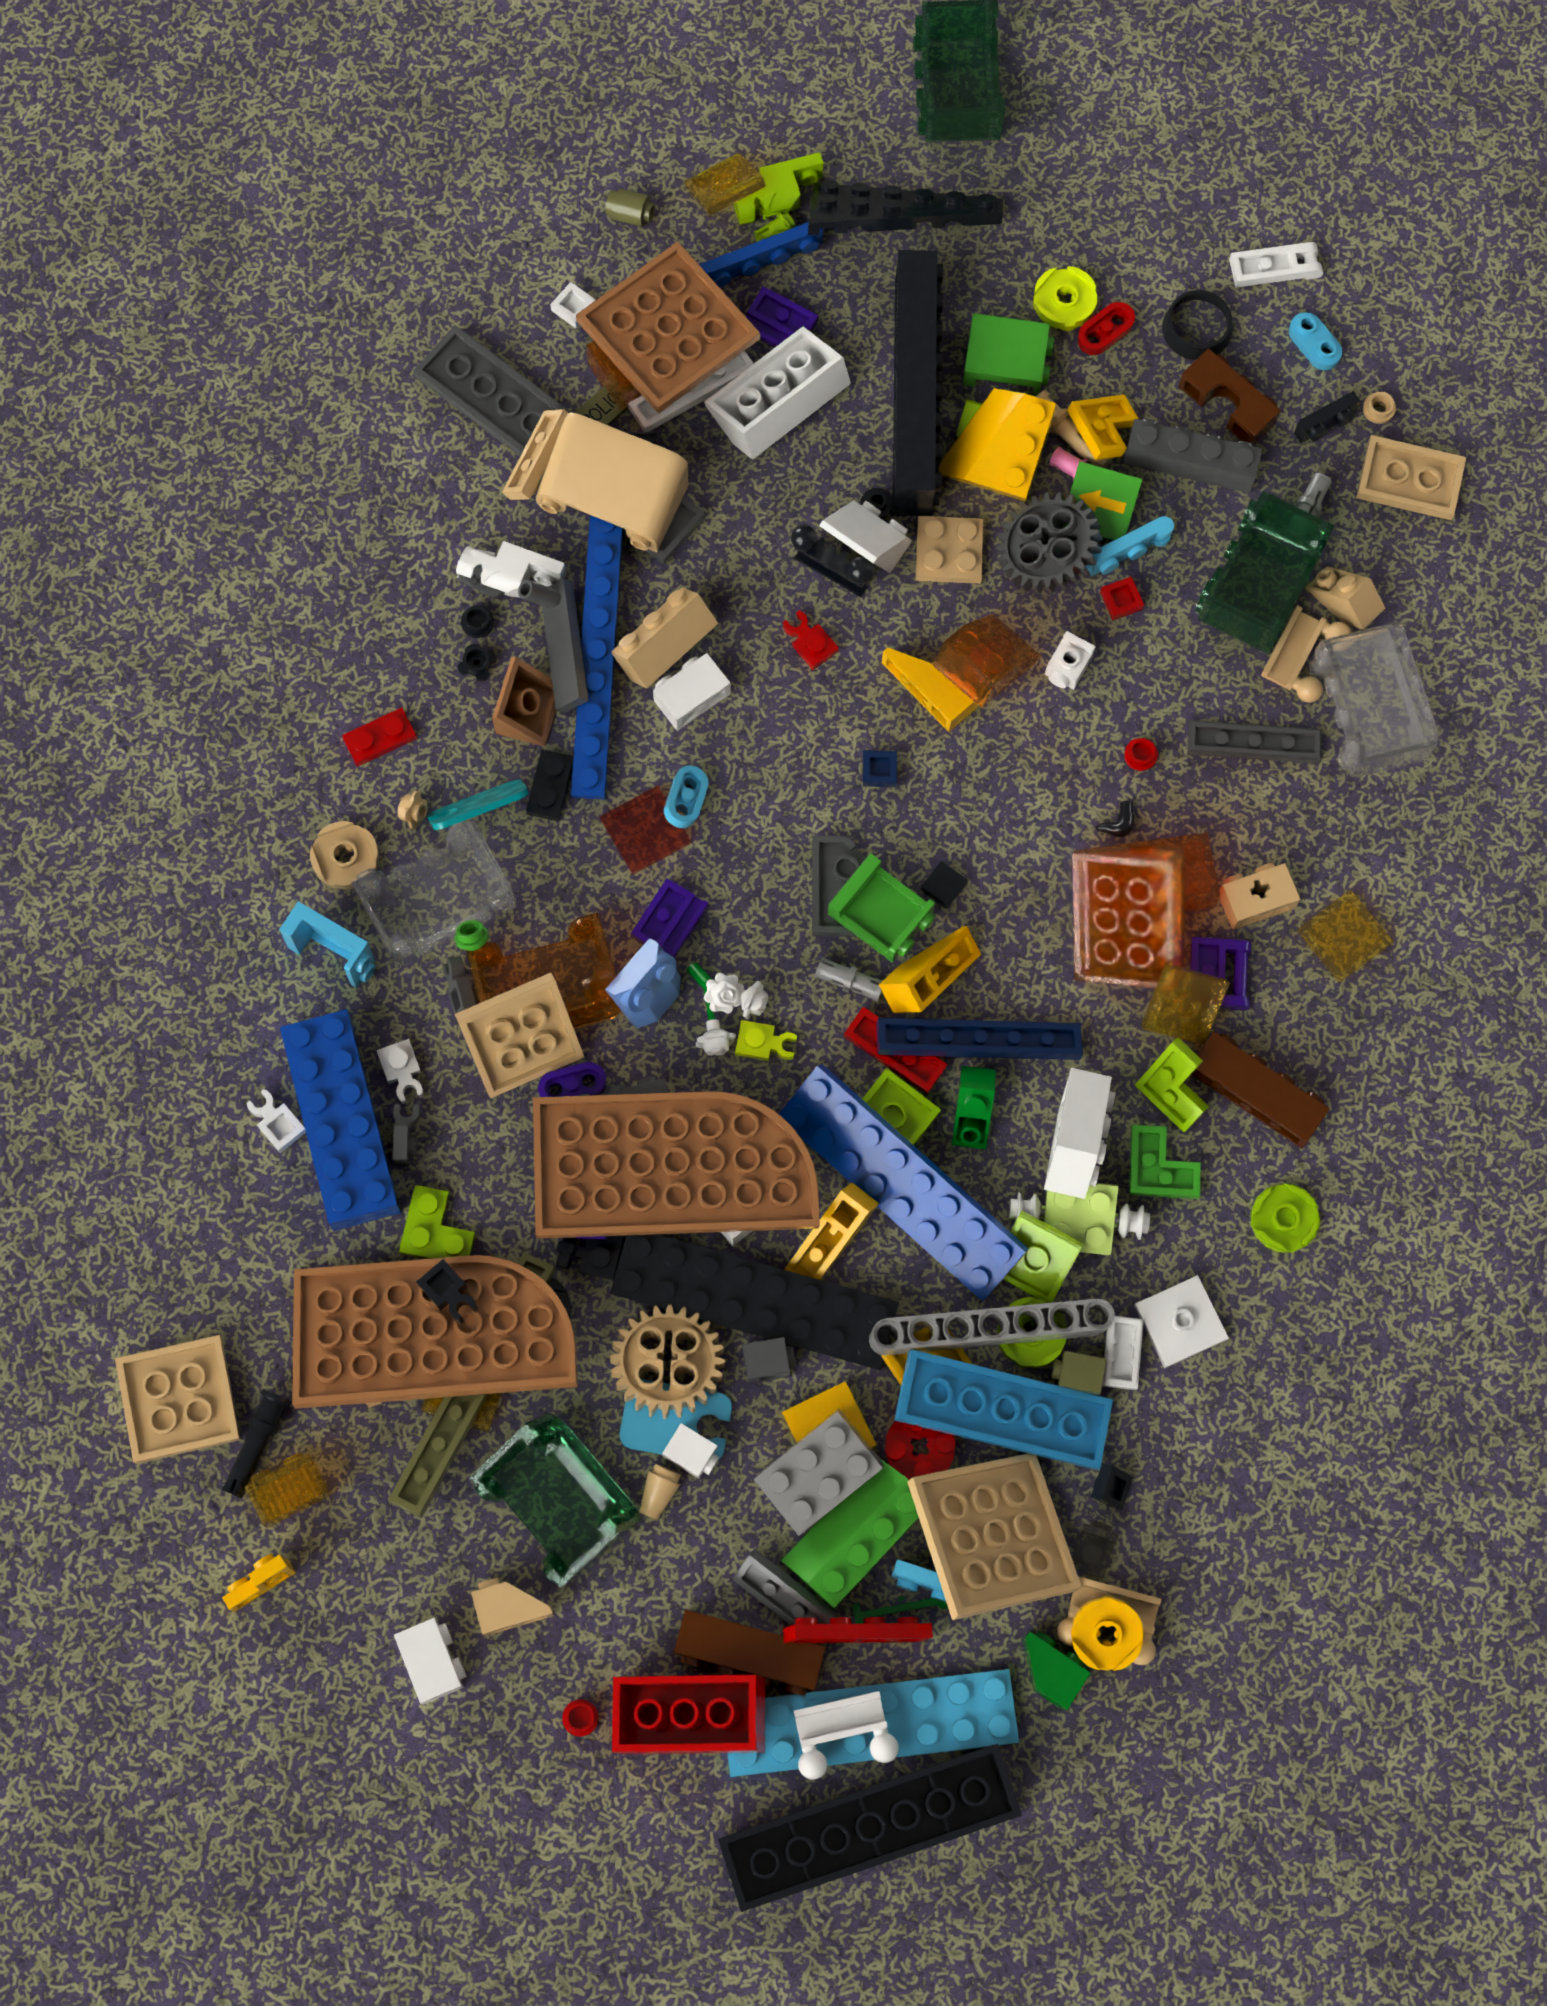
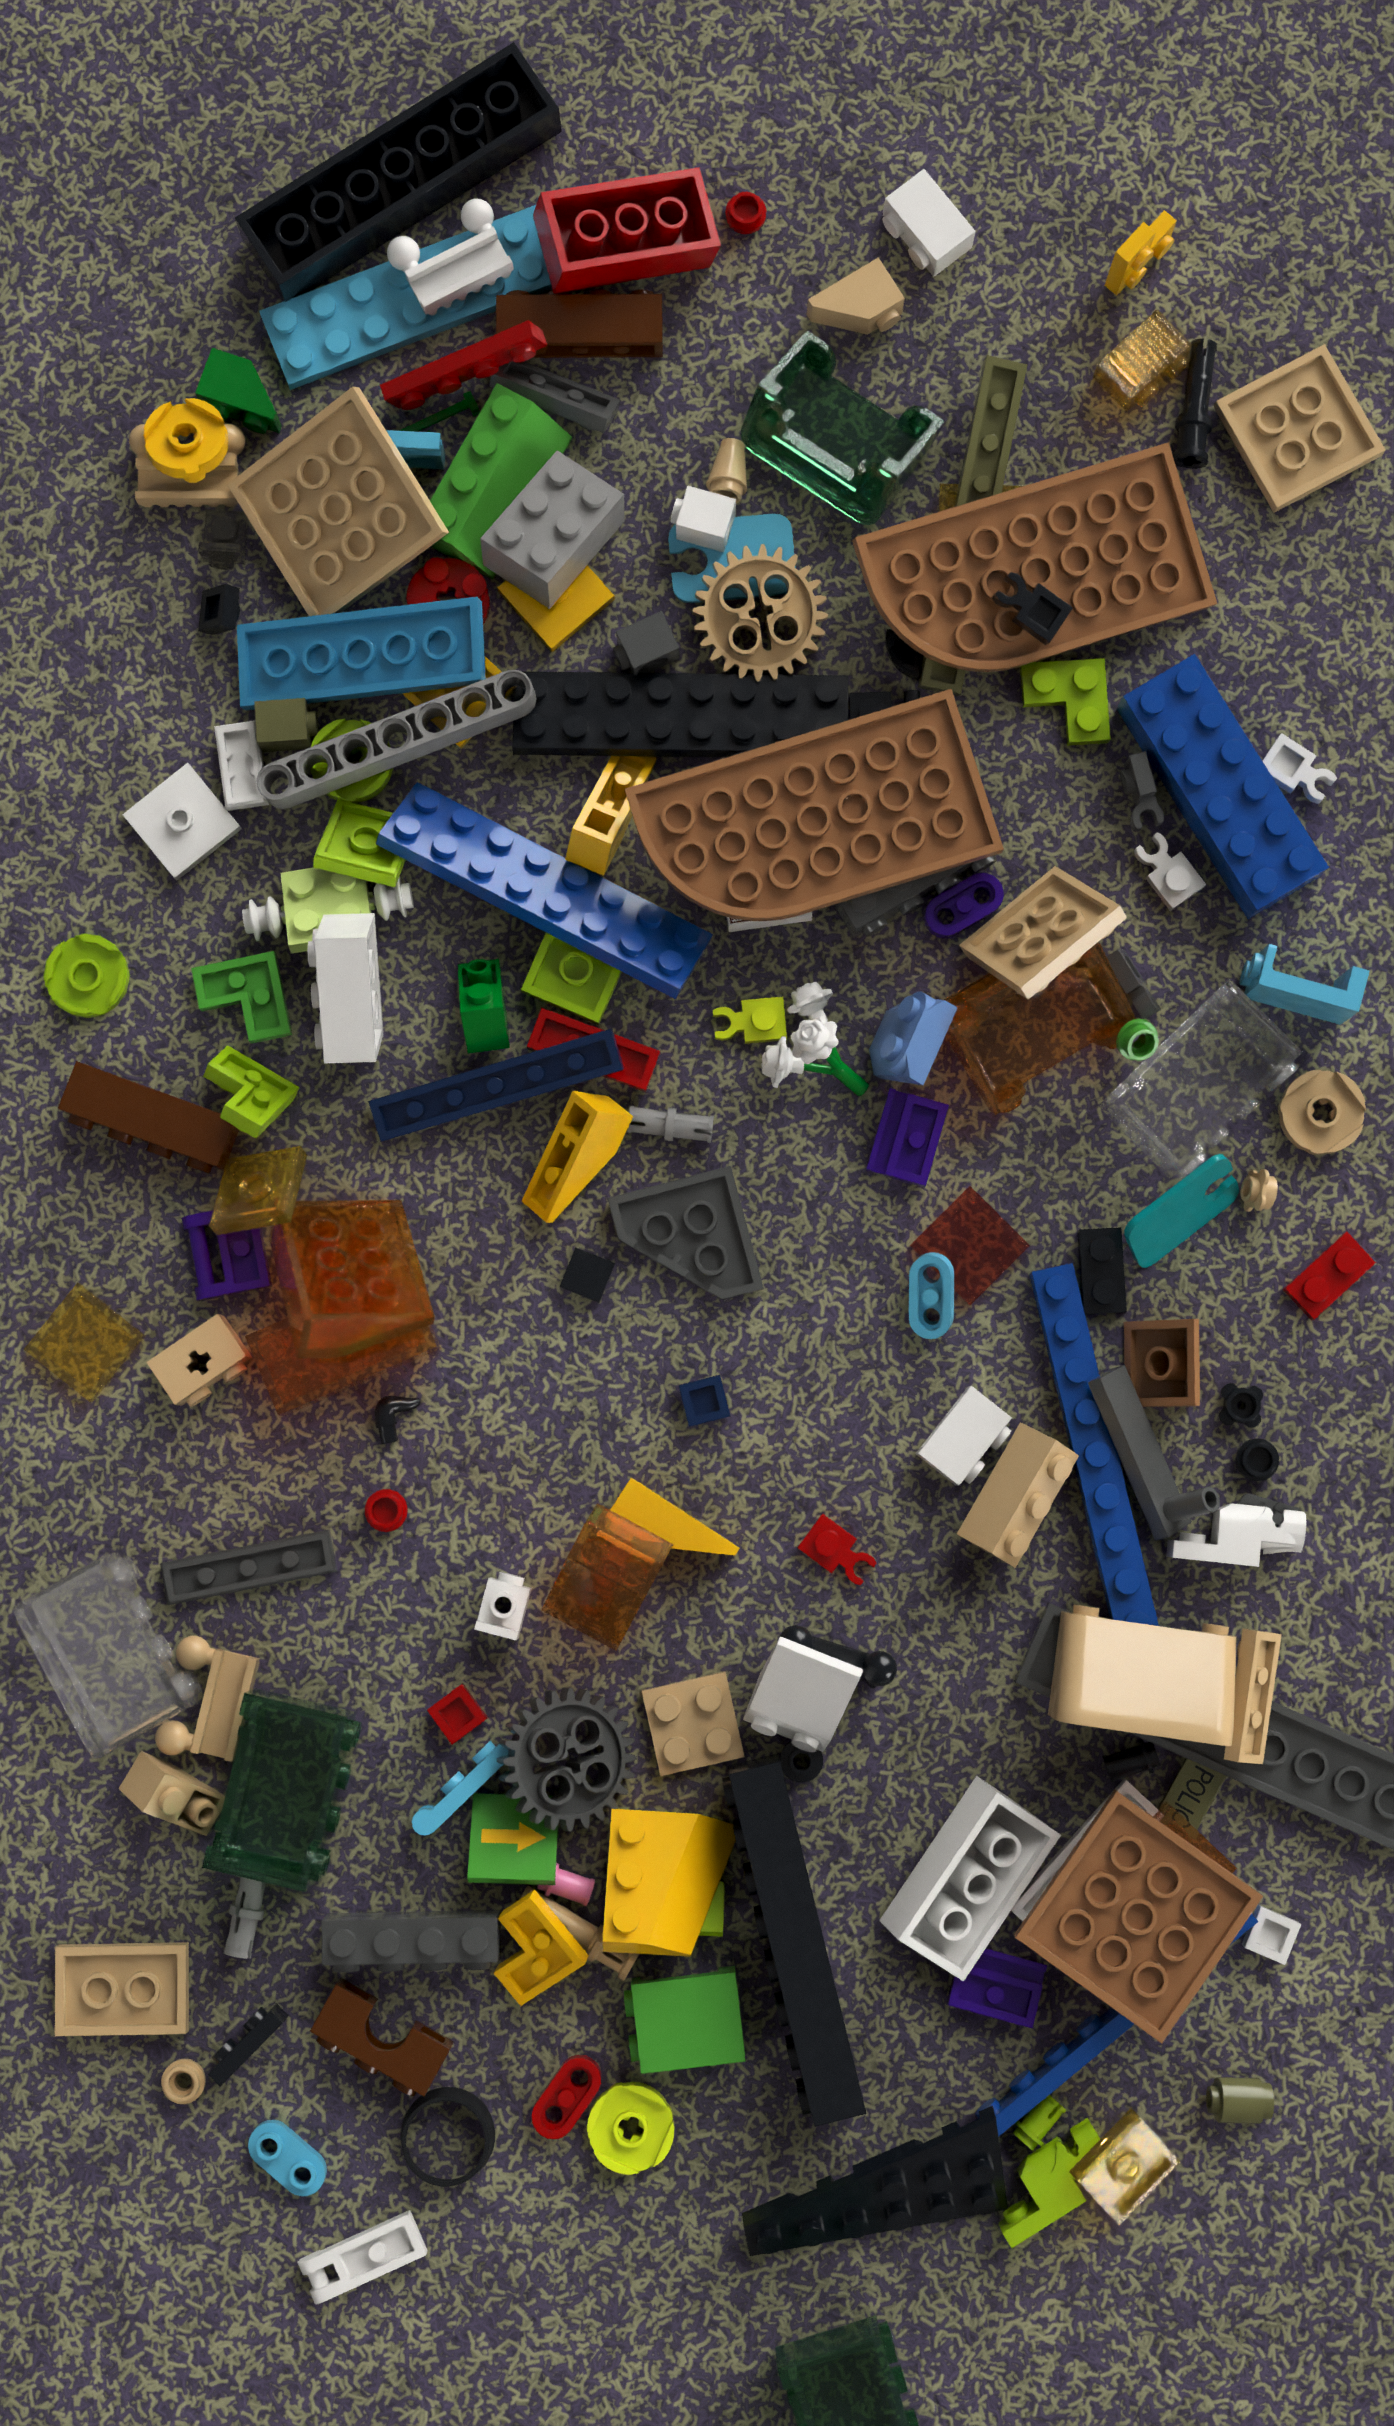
camera: 170 degrees right, 10 degrees up
(881, 910) = (652, 1210): bright green panel -> none

